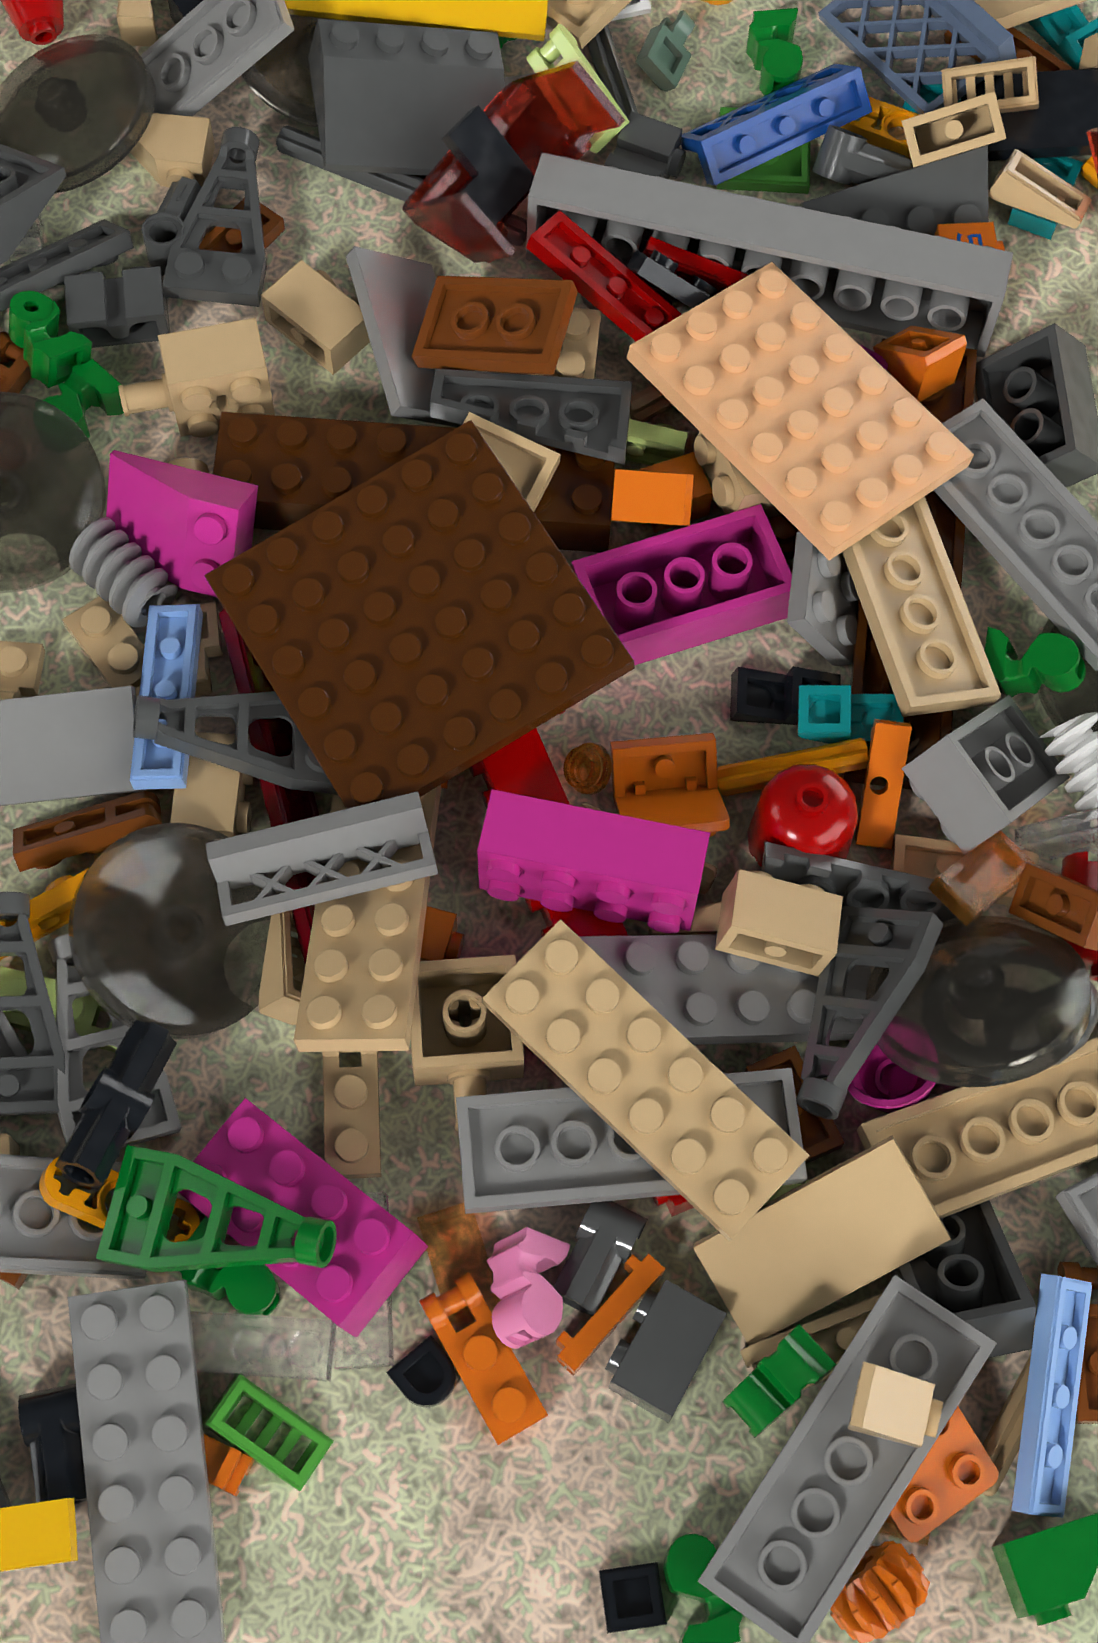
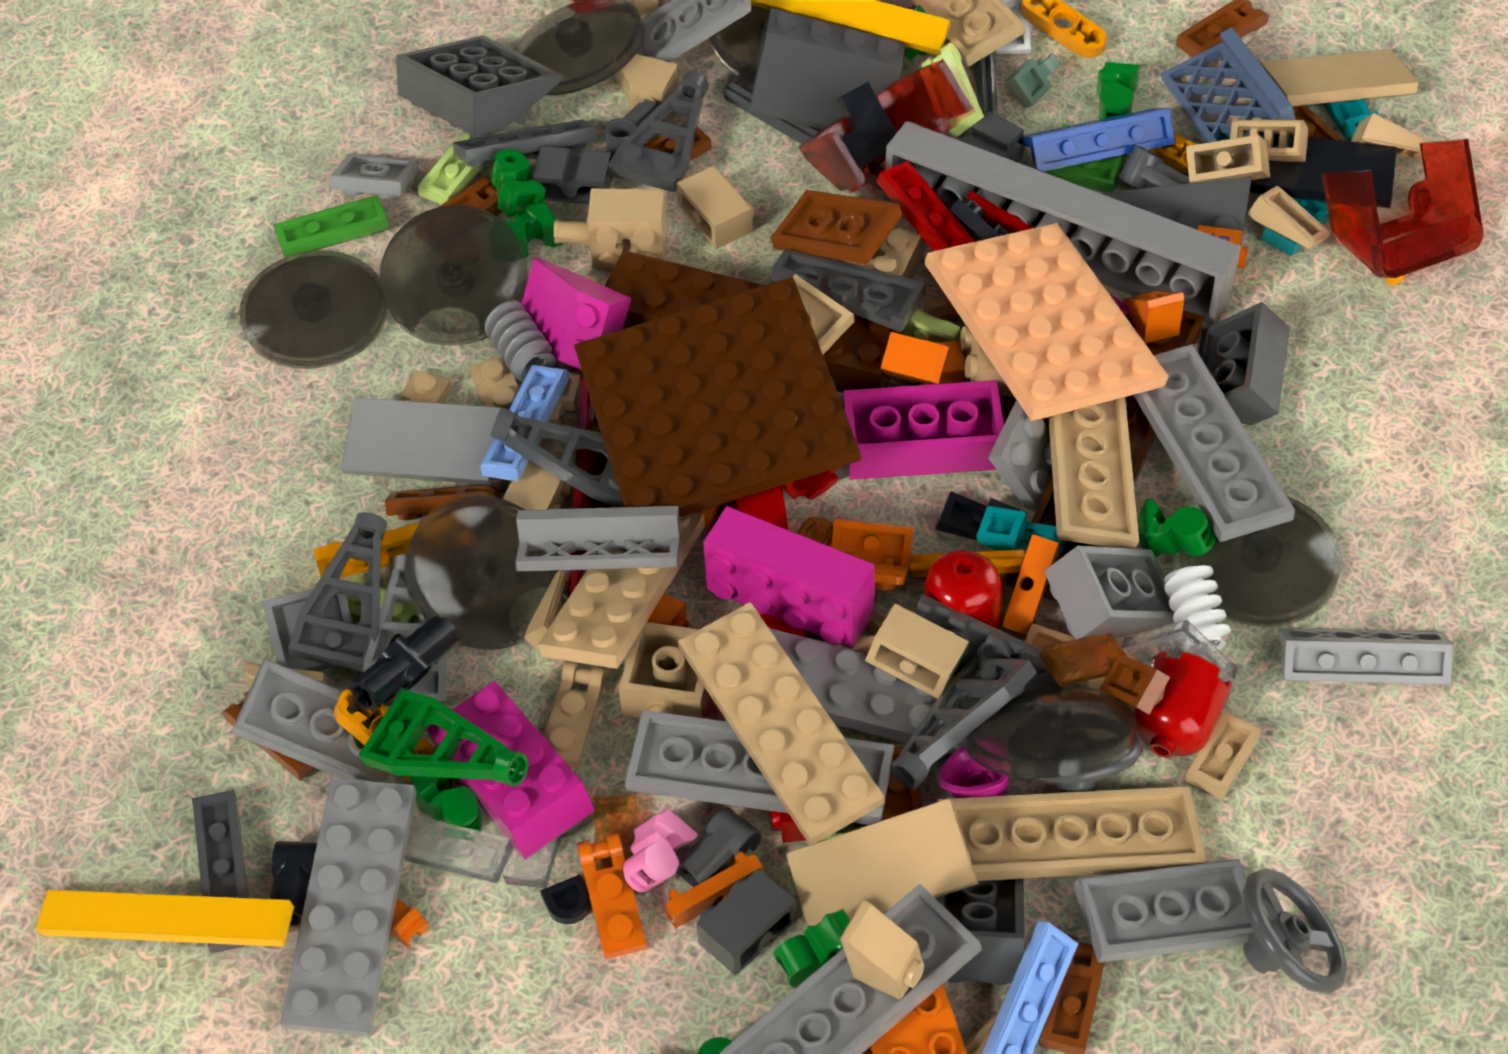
camera: 20 degrees right, 15 degrees down
(236, 1437) = (425, 879): bright green slope -> none
(393, 306) = (767, 203): light grey tile -> none

